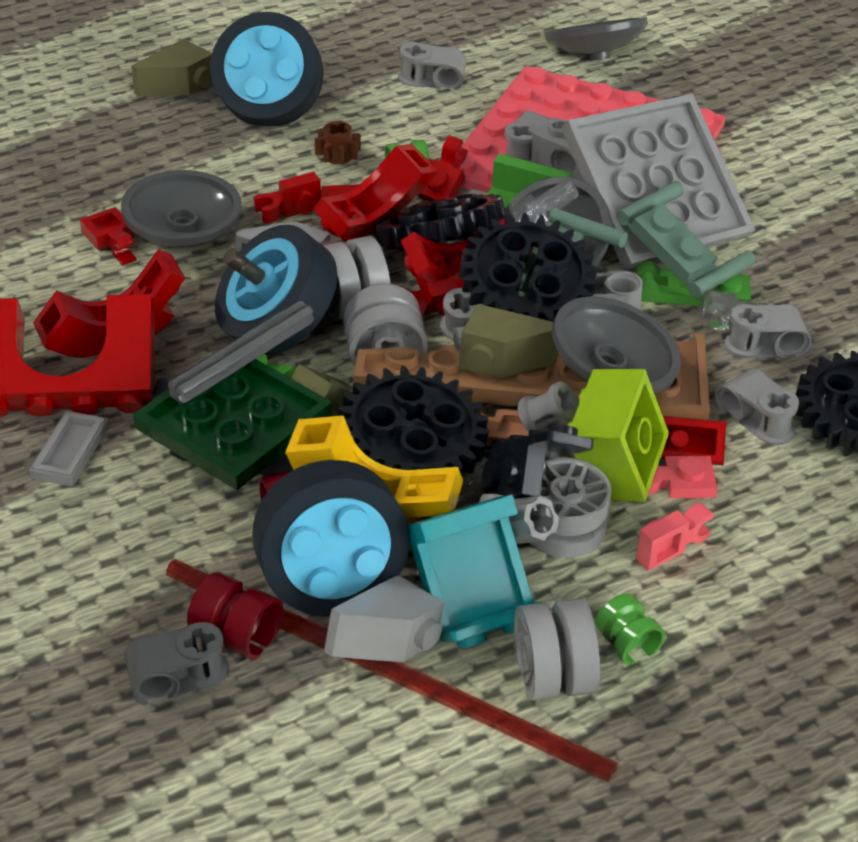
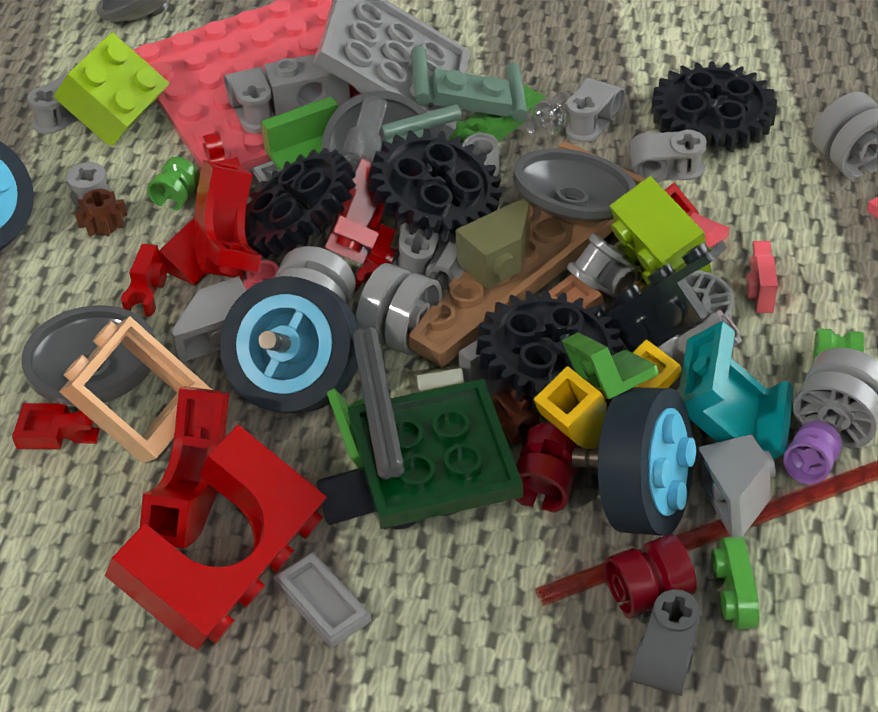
camera: 50 degrees left, 5 degrees up
(132, 197) = (157, 359): none -> light nougat window
(280, 678) = (740, 598): none -> bright green plate
(363, 120) = (85, 178): none -> light grey wheel
(375, 441) = (605, 372): none -> bright green panel
(457, 72) = (110, 89): none -> lime brick
(477, 662) = (813, 452): none -> medium lavender wheel

